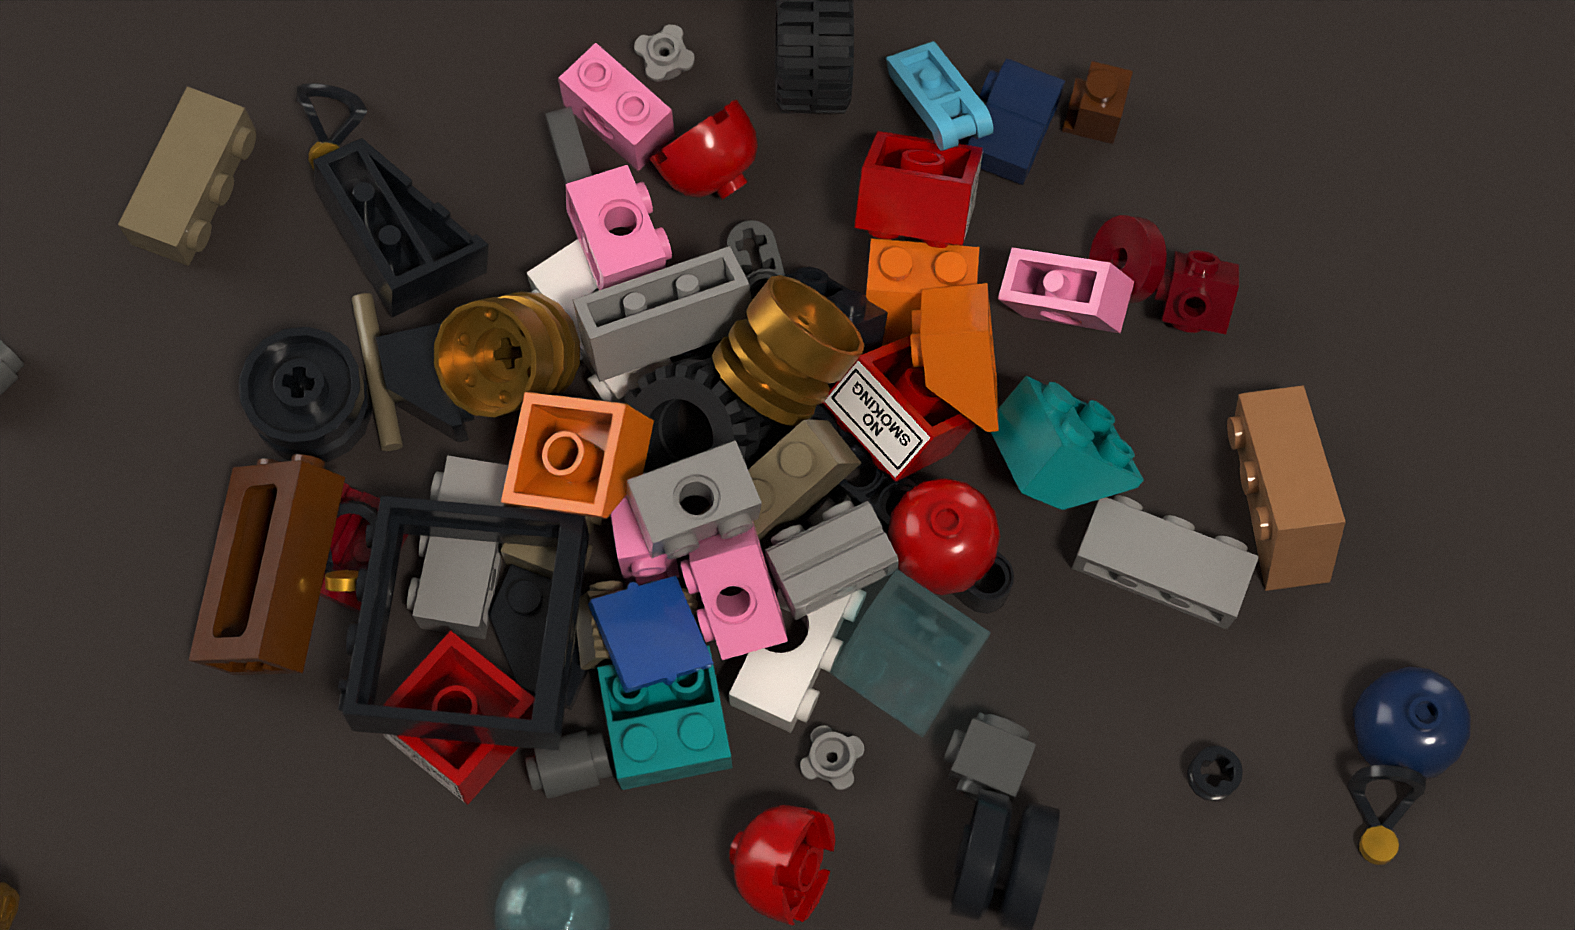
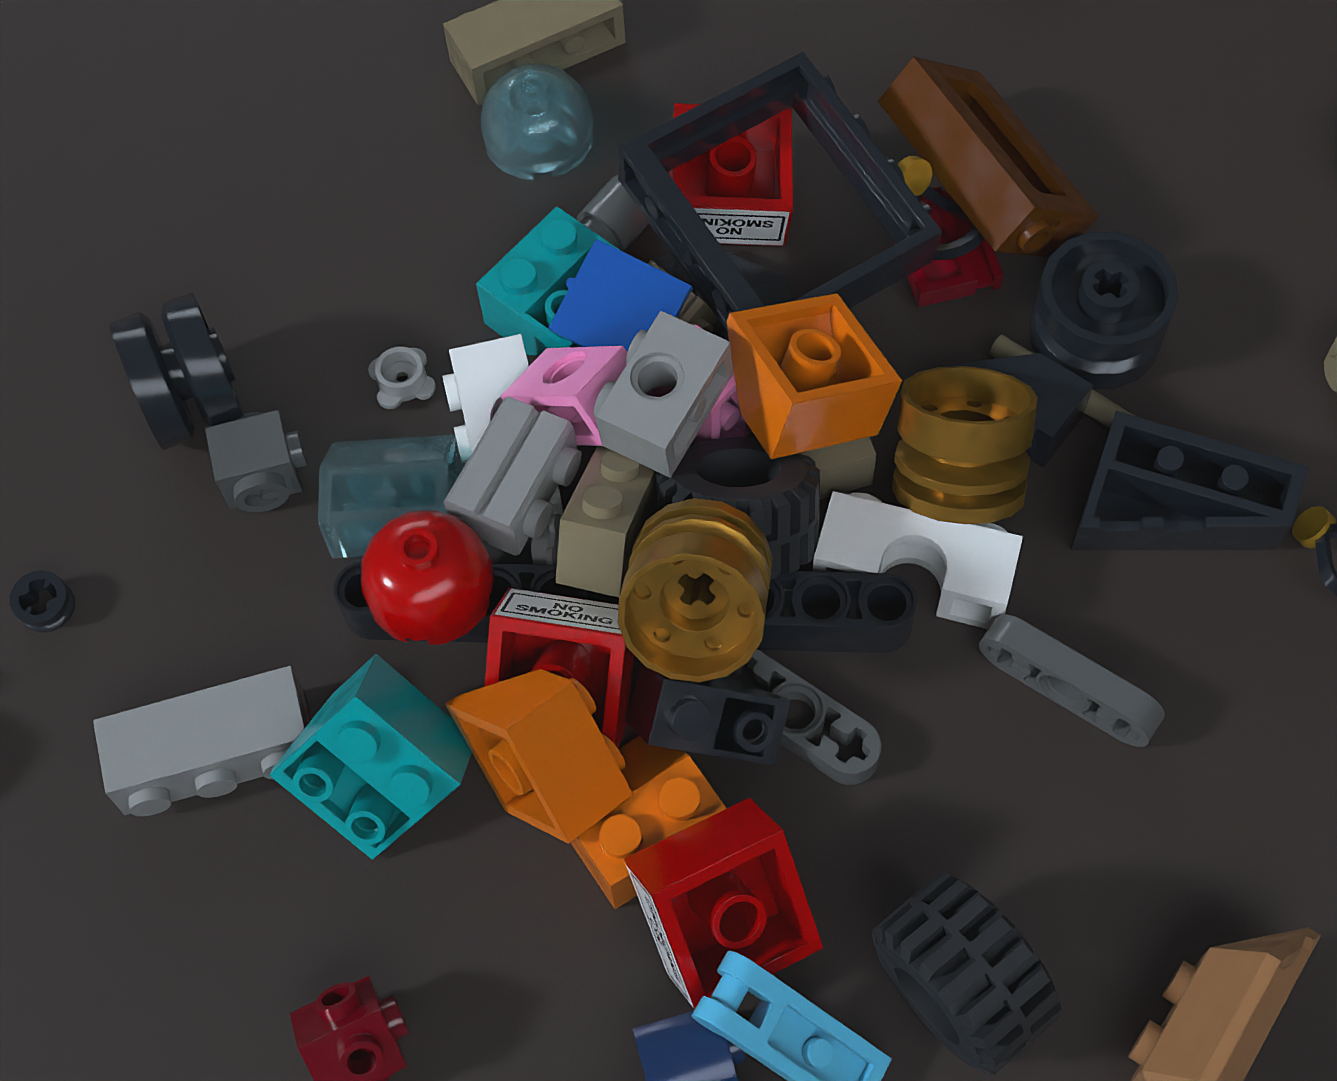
camera: 145 degrees right, 10 degrees down
(459, 573) = (830, 248): light grey brick -> none
(610, 202) = (956, 580): bright pink brick -> none
(617, 106) = (1106, 773): bright pink brick -> none
(662, 313) = (851, 560): light grey brick -> none
(664, 67) = (1125, 899): light grey plate -> none
(710, 155) = (969, 792): red cylinder -> none
(780, 862) = (377, 259): red cylinder -> none
(1066, 290) = (487, 915): bright pink brick -> none
(1135, 249) = (451, 1015): dark red piece -> none
(1287, 487) = (128, 898): medium nougat wedge -> none

